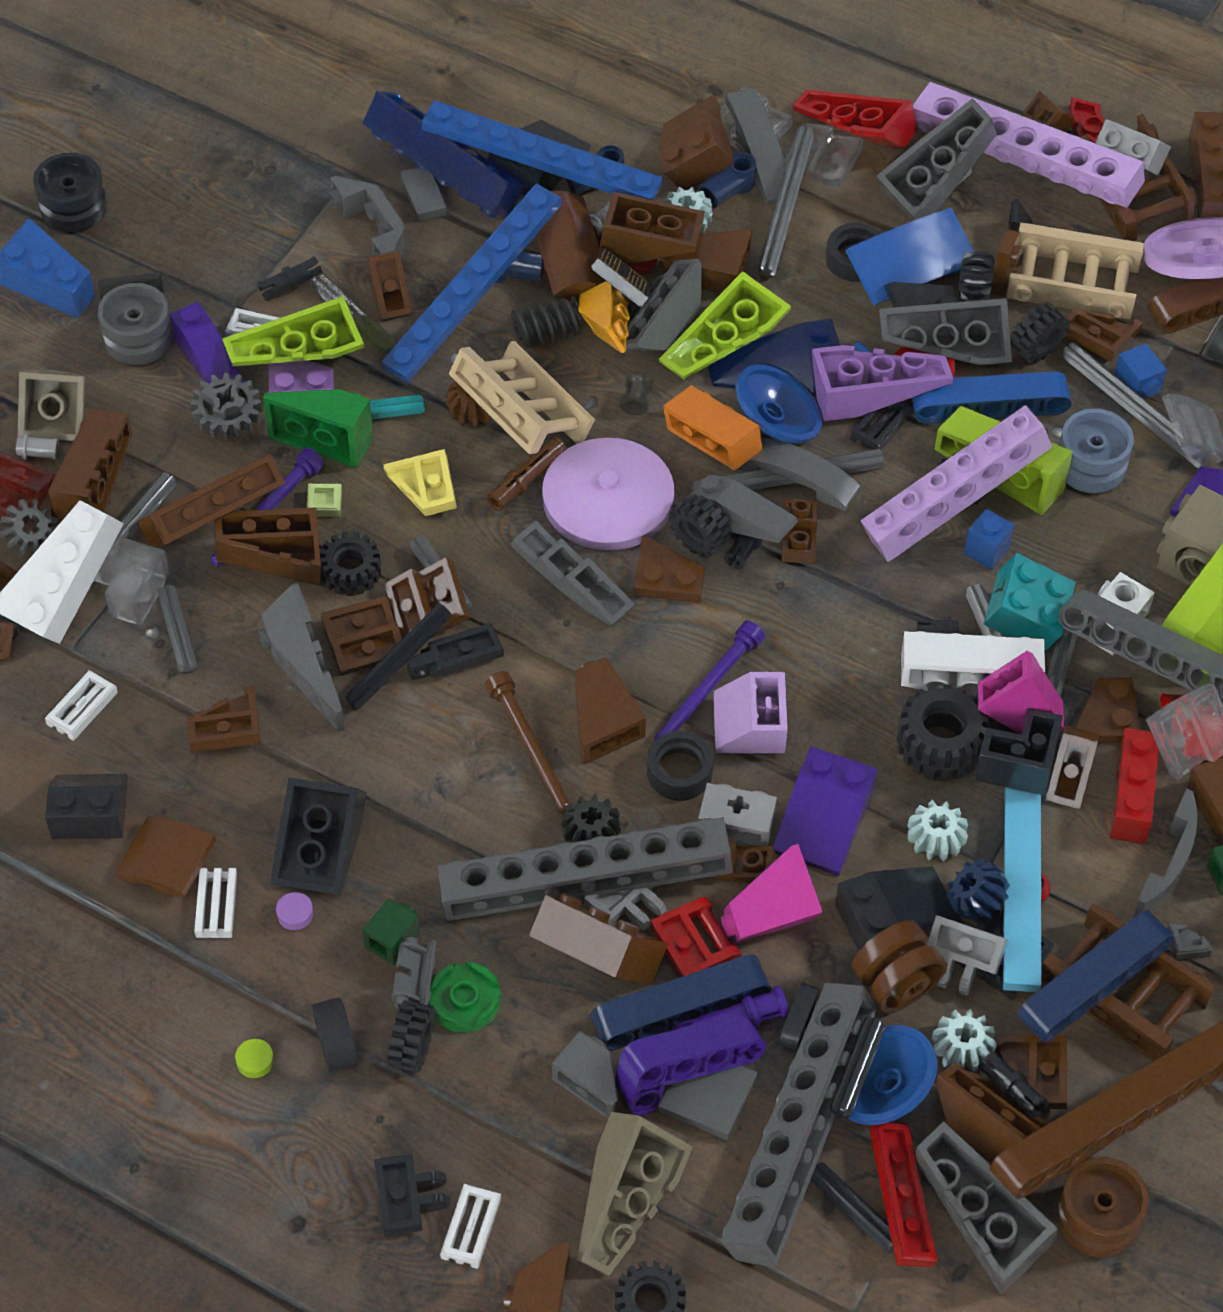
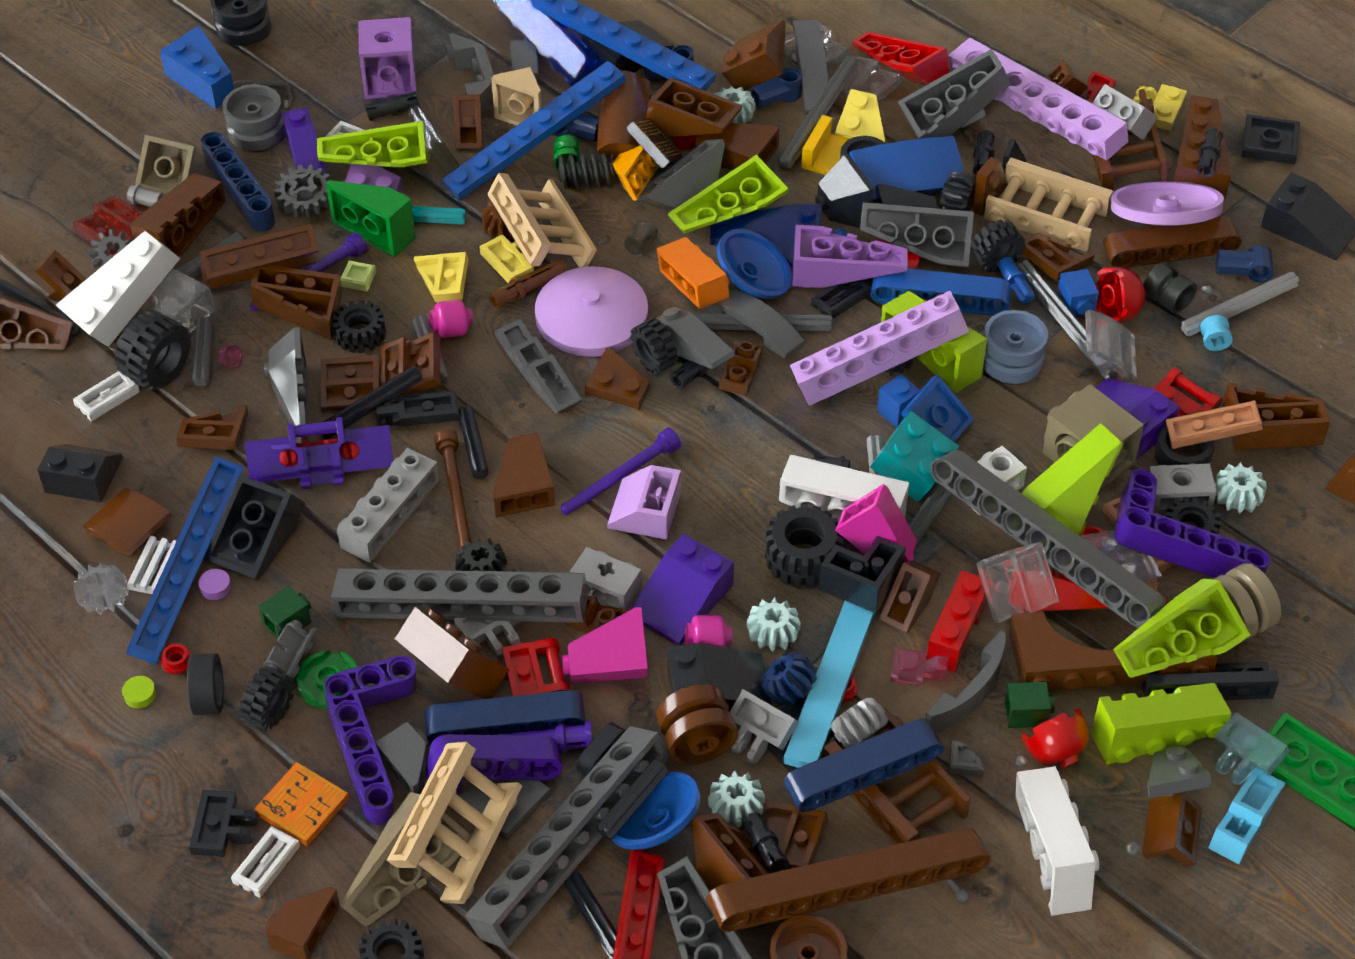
camera: 15 degrees right, 5 degrees down
(127, 642) = (152, 350): none -> black tyre
(145, 408) = (238, 181): none -> dark blue beam
(167, 944) = (101, 588): none -> clear gear
(214, 623) = (233, 352): none -> clear pink hinge
(252, 890) = (184, 561): none -> blue plate
(270, 221) = (387, 57): none -> medium lavender brick
(280, 1002) = (172, 653): none -> red plate
(365, 735) = (319, 460): none -> dark purple piece
(440, 245) = (515, 95): none -> tan slope
(454, 535) = (450, 318): none -> dark pink head
(461, 775) = (387, 505): none -> light grey brick
(487, 1150) = (302, 804): none -> orange tile
(492, 447) = (506, 258): none -> light yellow hinge
(513, 297) = (565, 146): none -> green wheel
(529, 680) = (473, 442): none -> black axle
(530, 1052) = (358, 732): none -> dark purple beam
(654, 1134) = (427, 815): none -> tan fence
(679, 743) = (569, 513): black tyre -> none
(805, 246) = (822, 148): none -> yellow panel
(835, 201) = (860, 116): none -> light yellow wing
(853, 299) = (843, 192): none -> black slope
(870, 854) = (708, 630): none -> dark pink head
(984, 220) = (983, 150): none -> black pin
(1038, 540) = (940, 409): none -> blue tile
(1070, 368) = (1017, 280): none -> blue axle
(1071, 927) = (859, 722): none -> light grey gear
(1100, 849) = (912, 667): none -> clear pink plate
(1110, 709) = (958, 554): reddish brown wing -> none
(1166, 119) = (1166, 104): none -> light yellow hinge
(1189, 366) = (1120, 293): none -> red cylinder

